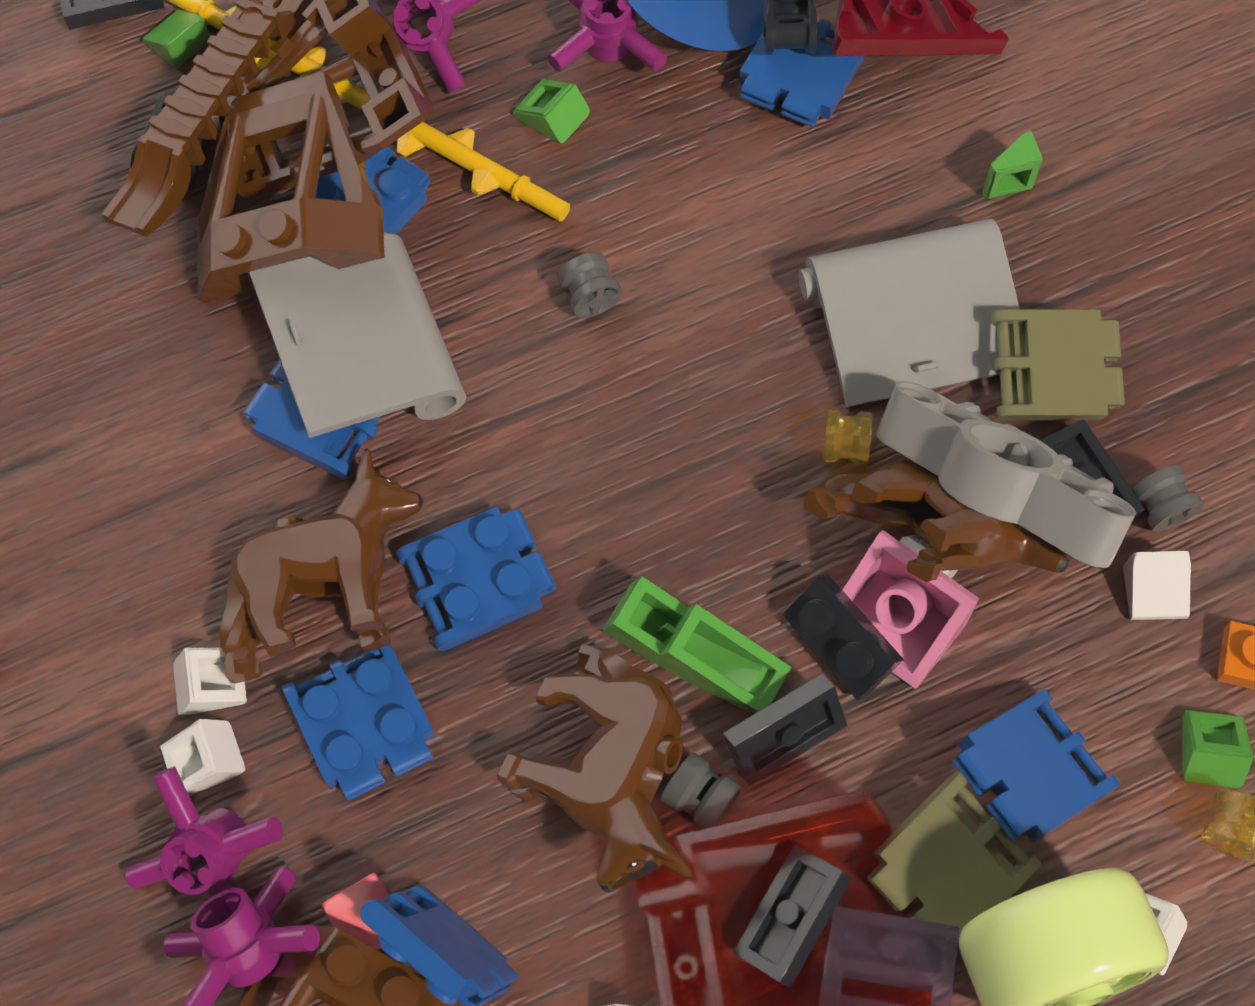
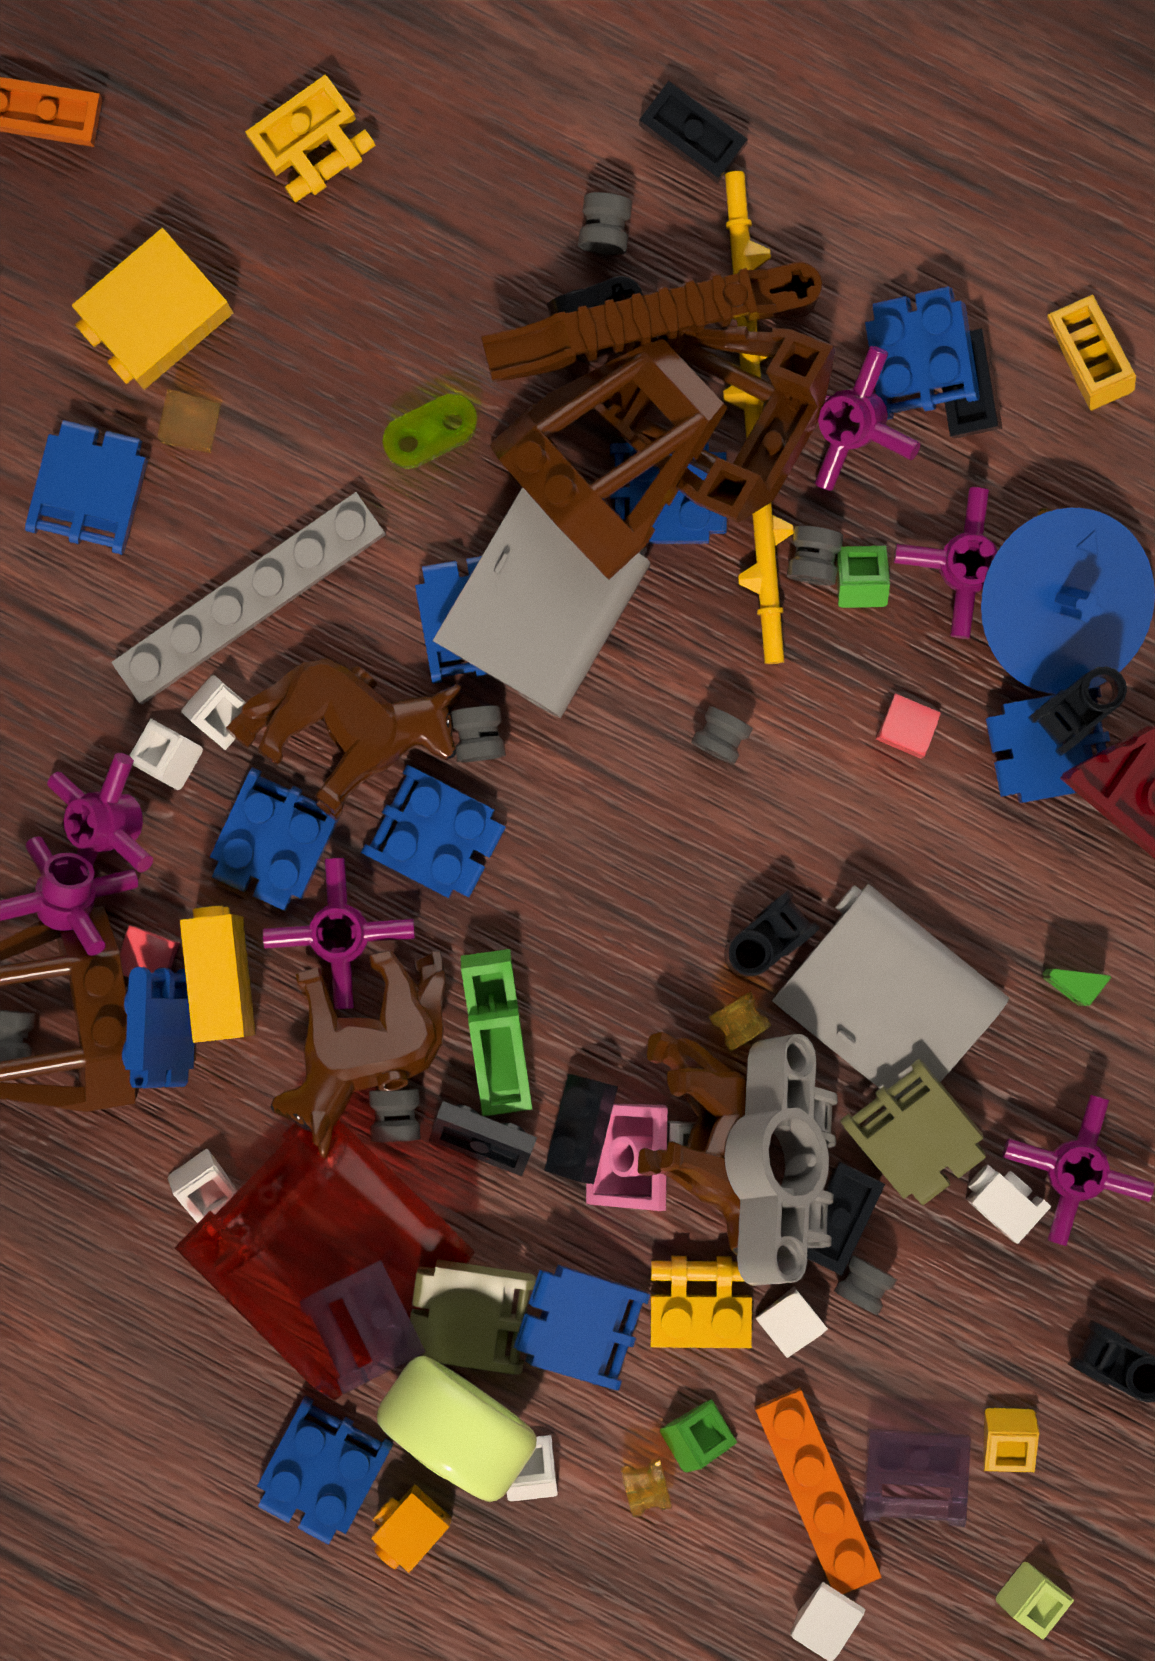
camera: 50 degrees right, 20 degrees up
(110, 89) = (605, 223): none -> dark grey wheel
(136, 586) = (248, 598): none -> light grey plate
(138, 334) = (428, 429): none -> clear neon green plate
(178, 37) = (698, 218): bright green slope -> none
(421, 470) = (478, 733): none -> dark grey wheel
(438, 849) = (217, 975): none -> yellow brick
(491, 695) = (325, 920): none -> magenta bar
(500, 118) = (815, 555): none -> dark grey wheel
(701, 155) = (908, 726): none -> coral slope
(791, 360) = (771, 935): none -> black piece
(792, 915) = (354, 1237): black plate -> none
(1100, 665) = (700, 1319): none -> yellow plate
(1171, 340) = (1006, 1202): none -> white brick
(1181, 264) = (1098, 1176): none -> magenta bar

